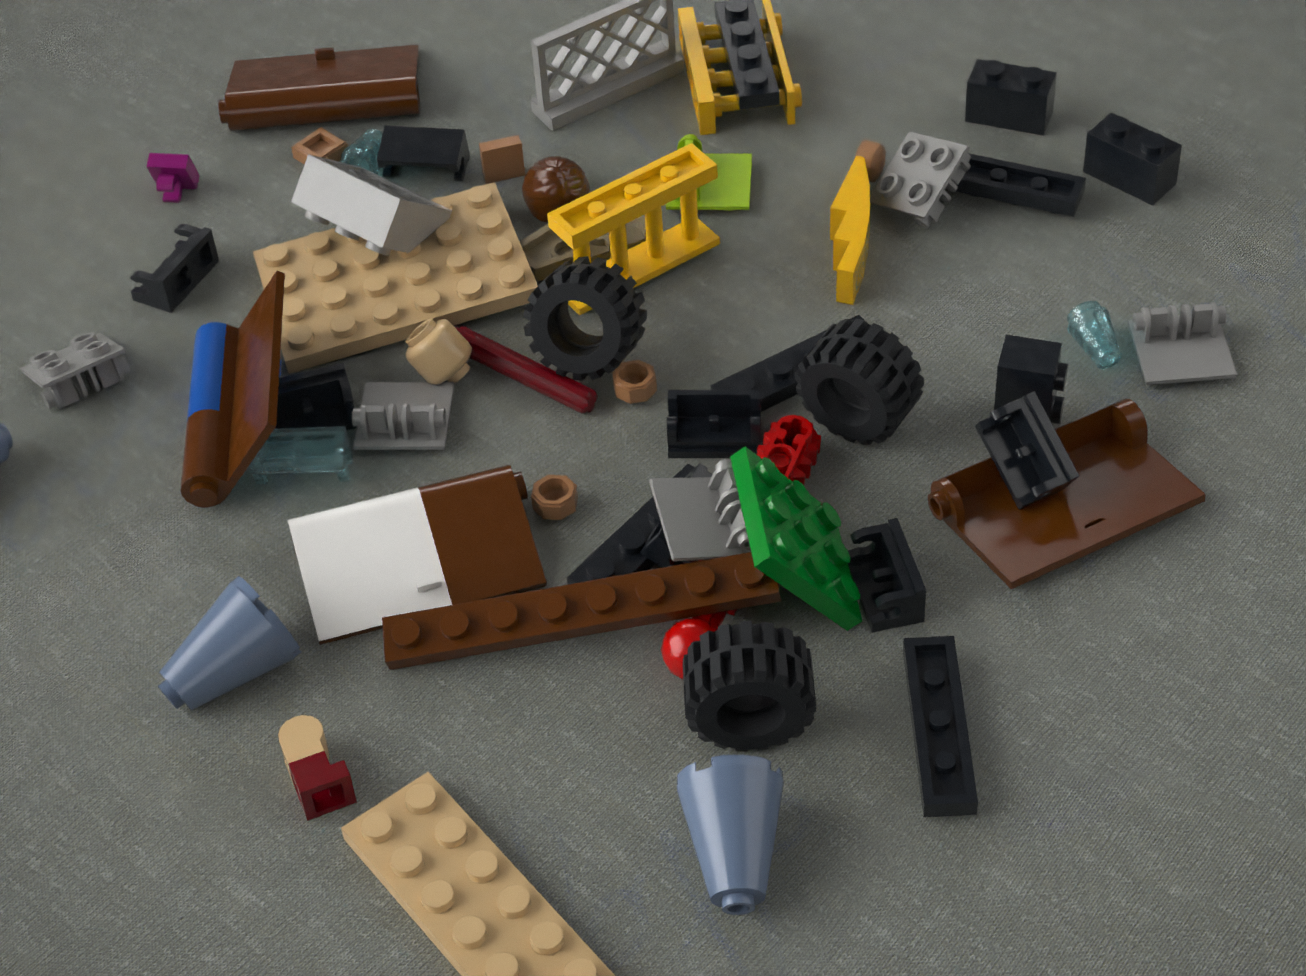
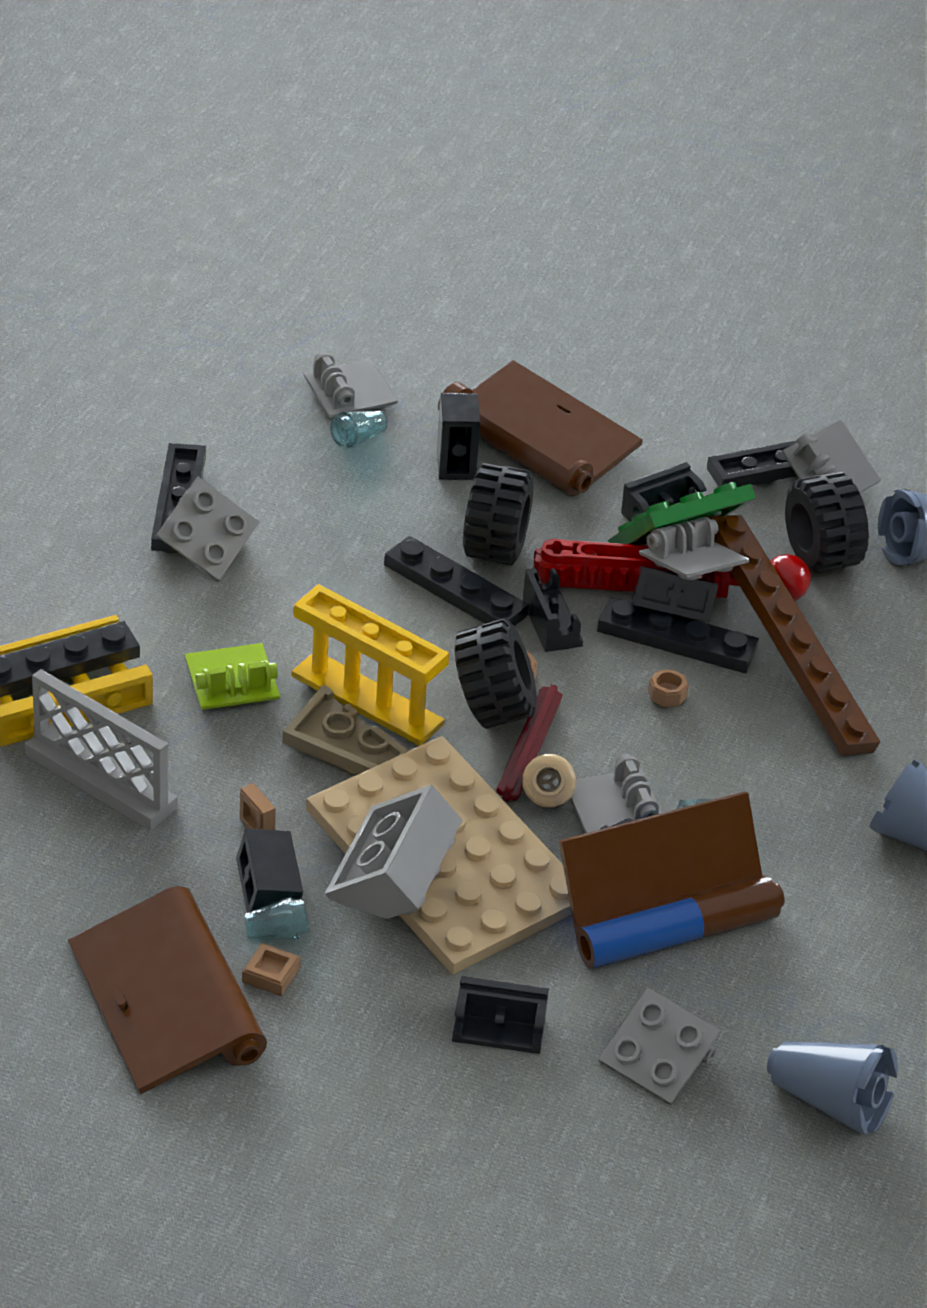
camera: 115 degrees left, 5 degrees down
(172, 174) = (366, 1061): magenta tile -> none
(416, 551) = (761, 752): door -> none
(553, 184) = (286, 767): reddish brown hair -> none
(851, 231) = (265, 568): yellow slope -> none
(874, 158) = (180, 573): medium nougat tile -> none
(896, 759) = (830, 452): none -> light grey hinge
(1010, 96) = (65, 496): black brick -> none
(1027, 451) = (529, 423): black hinge -> none
(1132, 158) = (134, 420): black brick -> none

